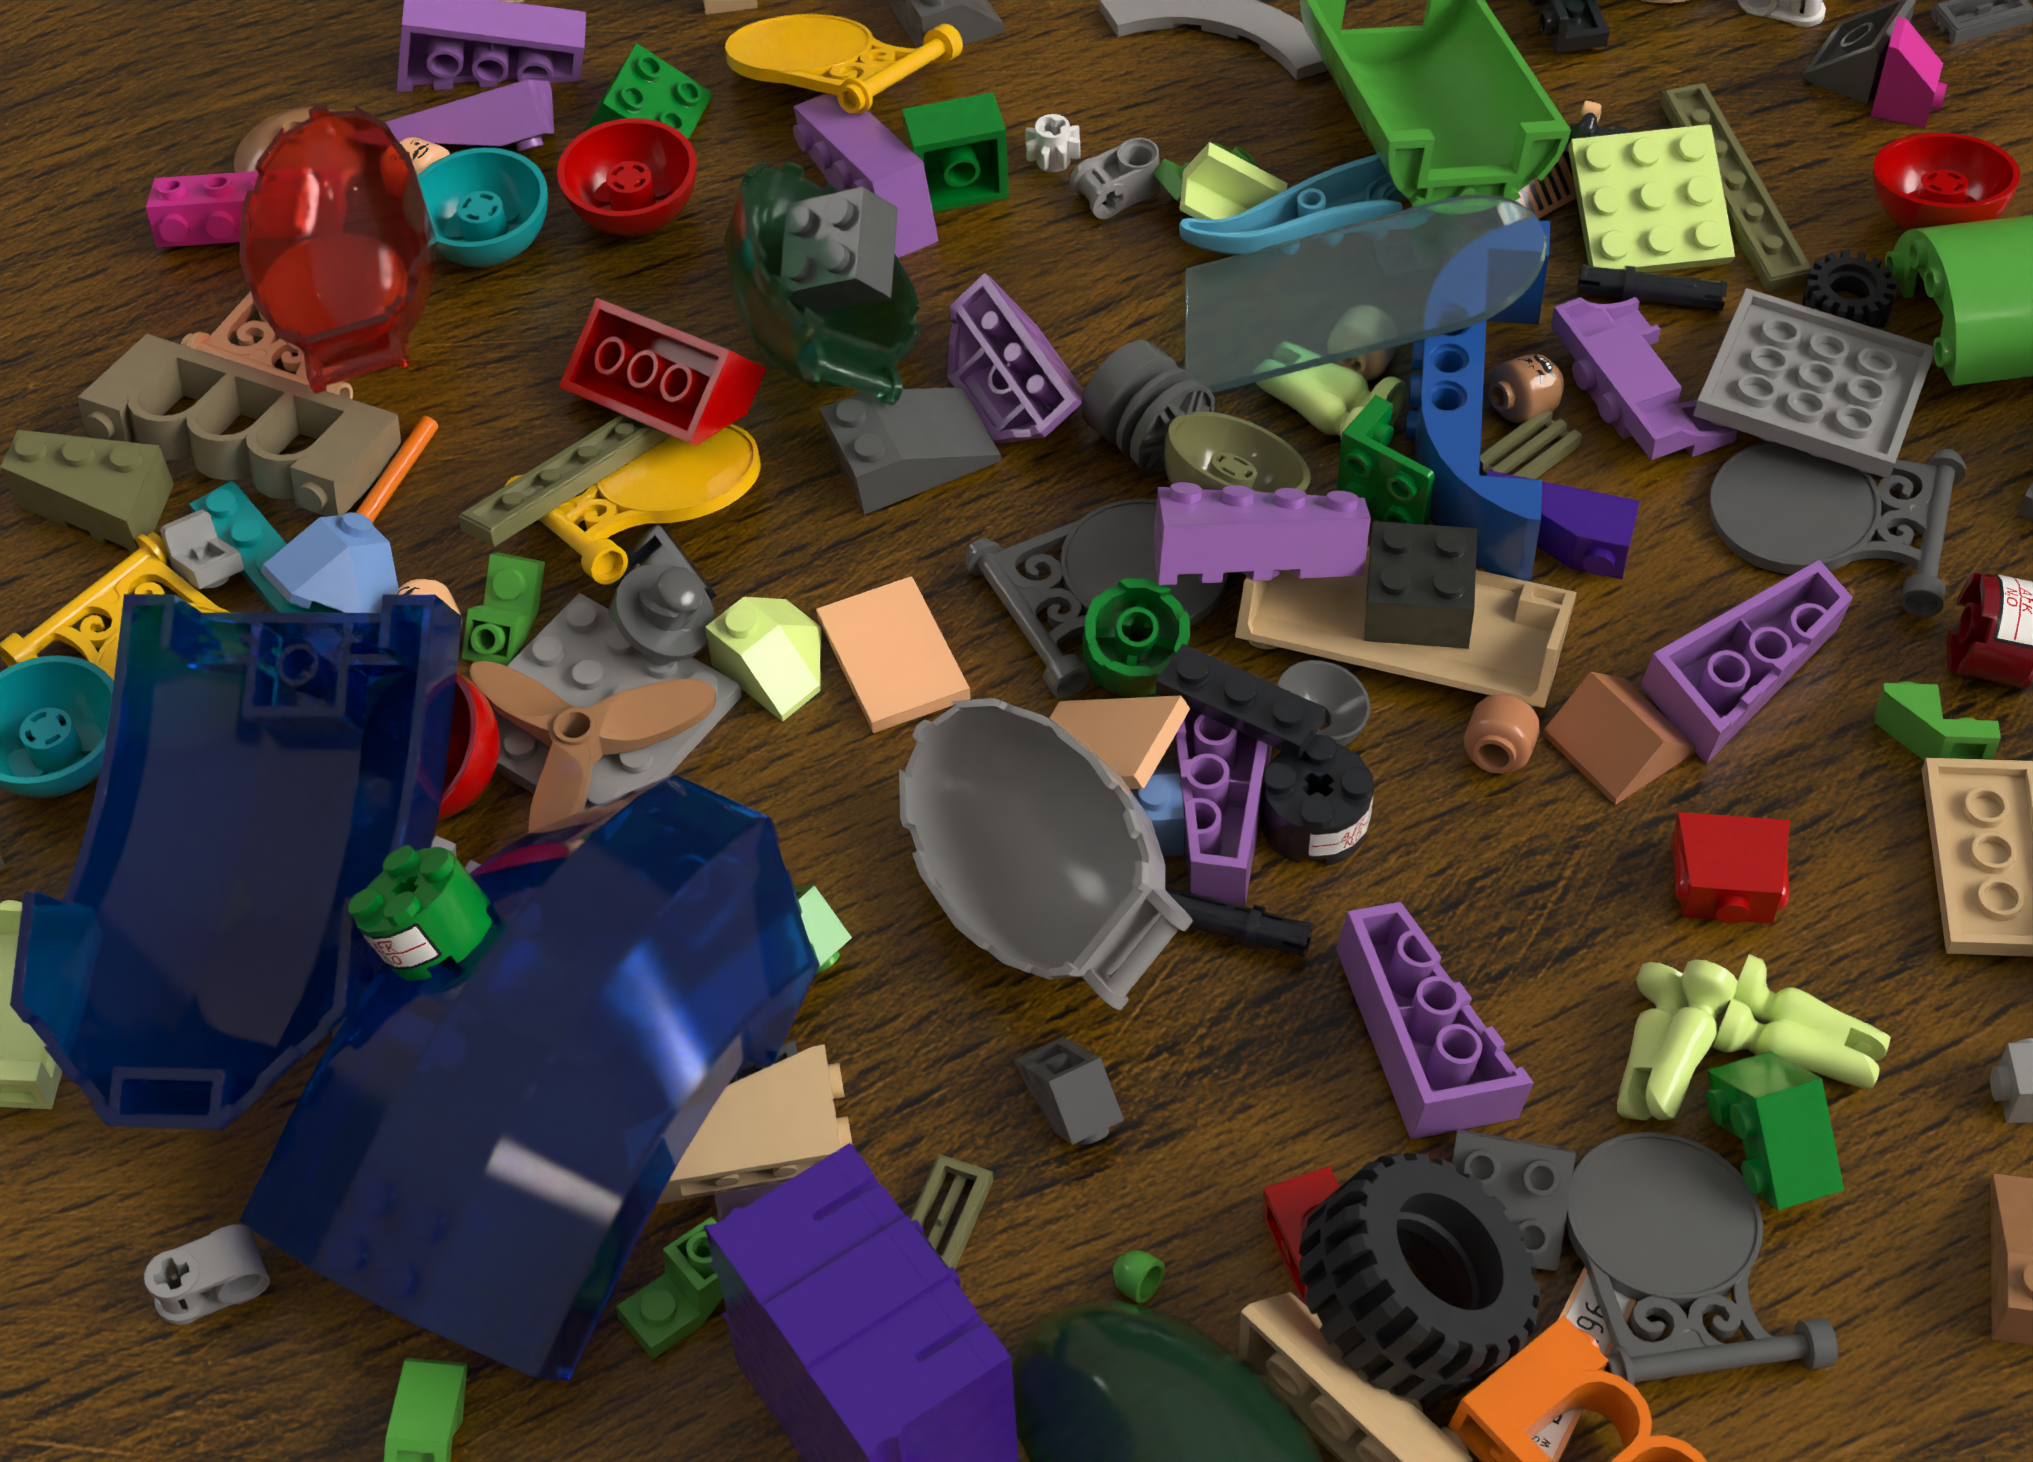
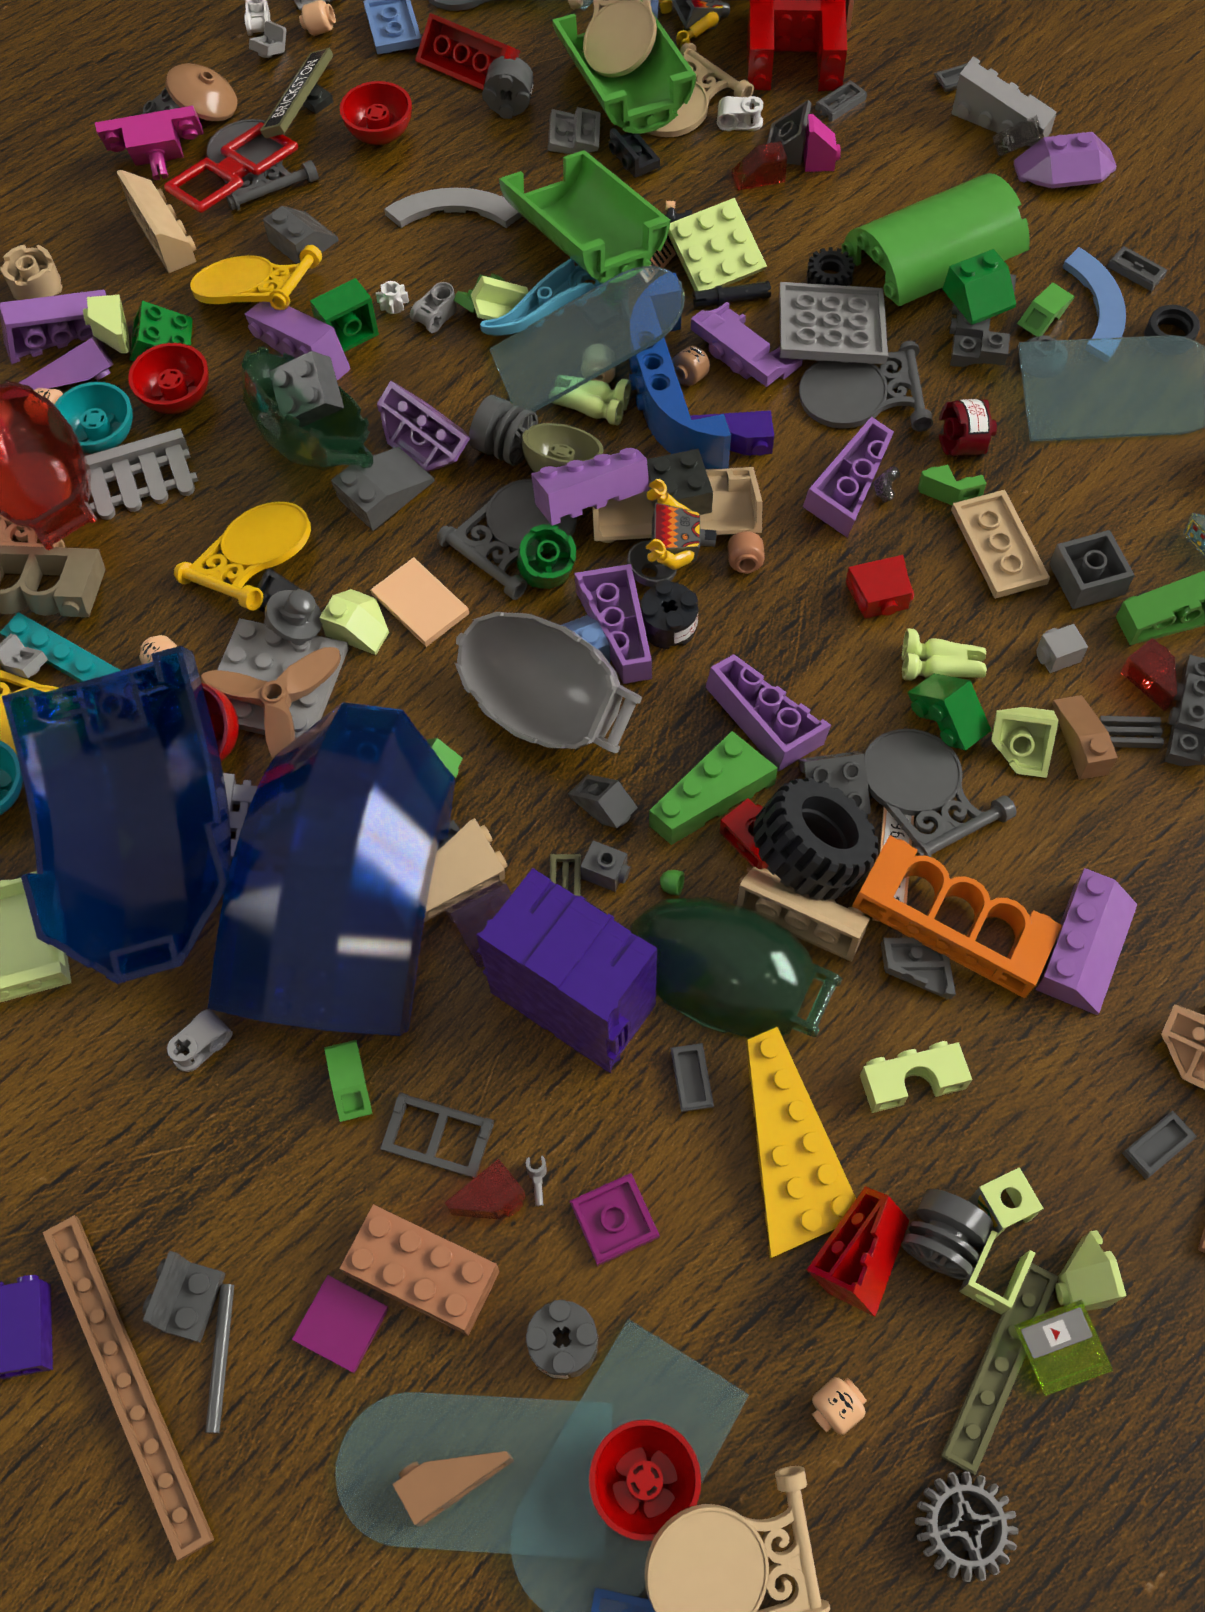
camera: 20 degrees left, 10 degrees up
(335, 564) = (102, 642): medium blue slope -> none
(398, 468) = (107, 583): orange bar -> none
(421, 911) = (248, 818): green brick -> none
(505, 289) = (137, 457): none -> light grey fence
(509, 609) = (203, 637): bright green slope -> none
(559, 479) = (214, 546): olive tile -> none
(569, 63) = (108, 321): none -> yellowish green slope
(660, 374) = (235, 485): red slope -> none
(677, 1299) = (452, 964): bright green slope -> none
(1024, 1206) = (605, 866): none -> dark grey brick
(1125, 731) = (562, 606): light nougat tile -> none
(1242, 700) = (615, 574): black plate -> none
(1245, 924) = (660, 688): black pin -> none
(1271, 1129) = (711, 788): none -> bright green wedge
(1378, 657) = (675, 530): none -> torso
(1390, 482) = (638, 433): green bracket -> none
(1525, 441) = (710, 384): olive tile -> none
(1616, 736) = (800, 537): nougat slope -> none
(1673, 1036) = (885, 680): yellowish green piece -> none
(1749, 206) = (769, 242): olive tile -> none
(1789, 88) = (761, 167): none -> clear red slope
(1810, 685) = (884, 484): none -> clear smoke arm
(1904, 1225) = (1026, 738): none -> yellowish green slope
(1944, 180) = (858, 198): red piece -> none

